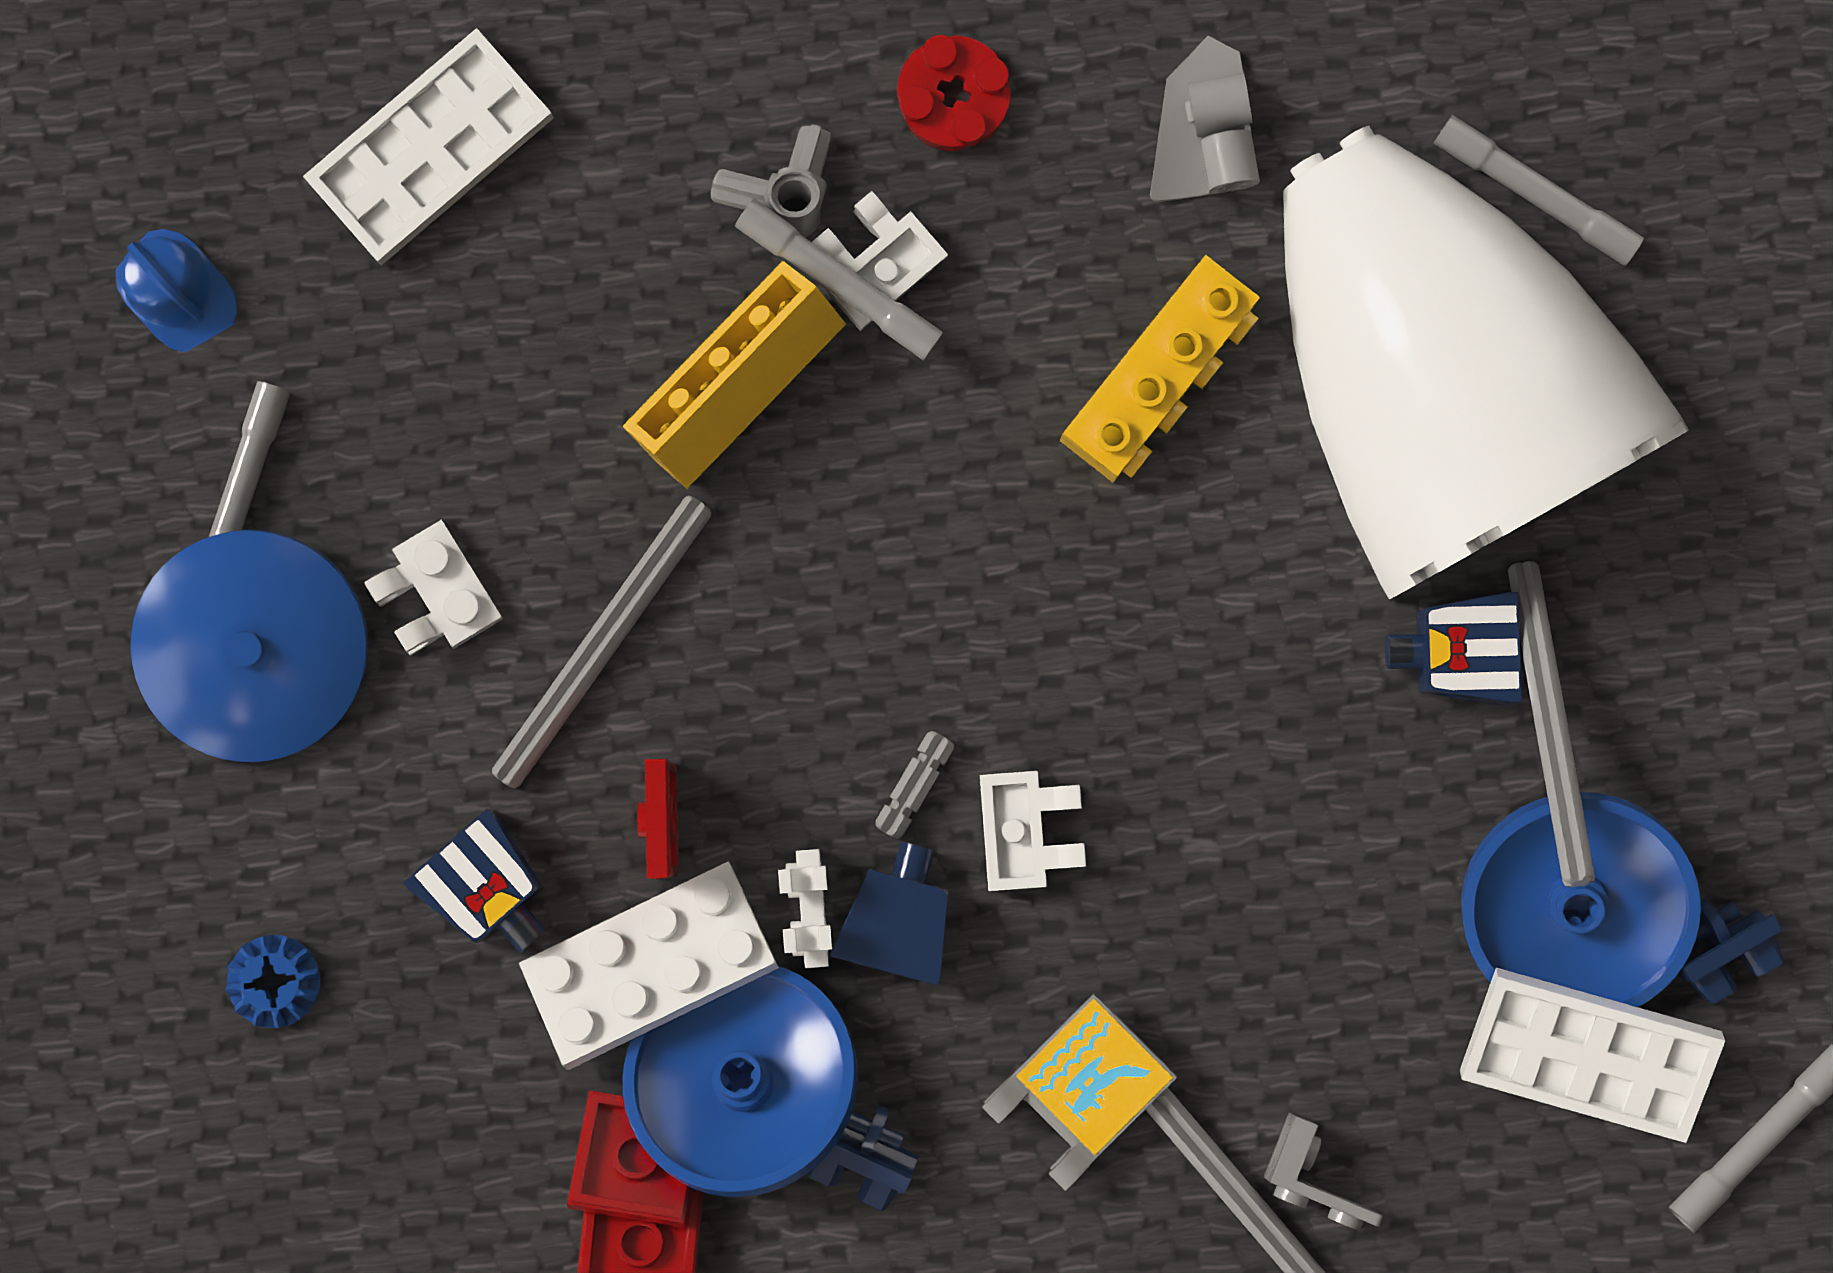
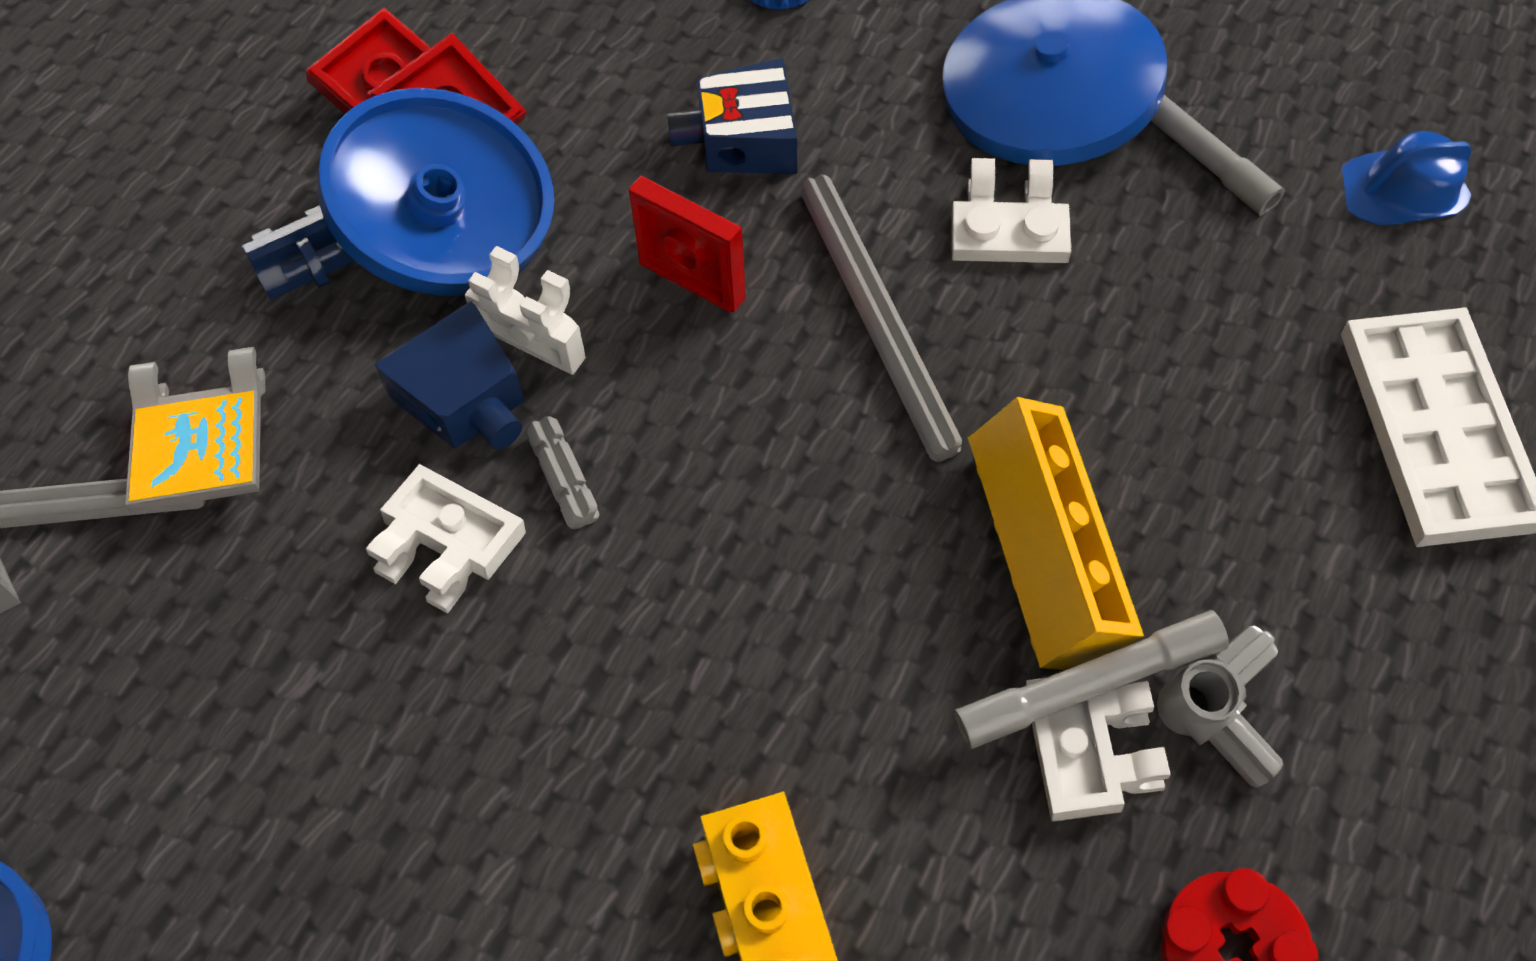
camera: 135 degrees right, 25 degrees down
(648, 965) = (577, 193): white plate -> none

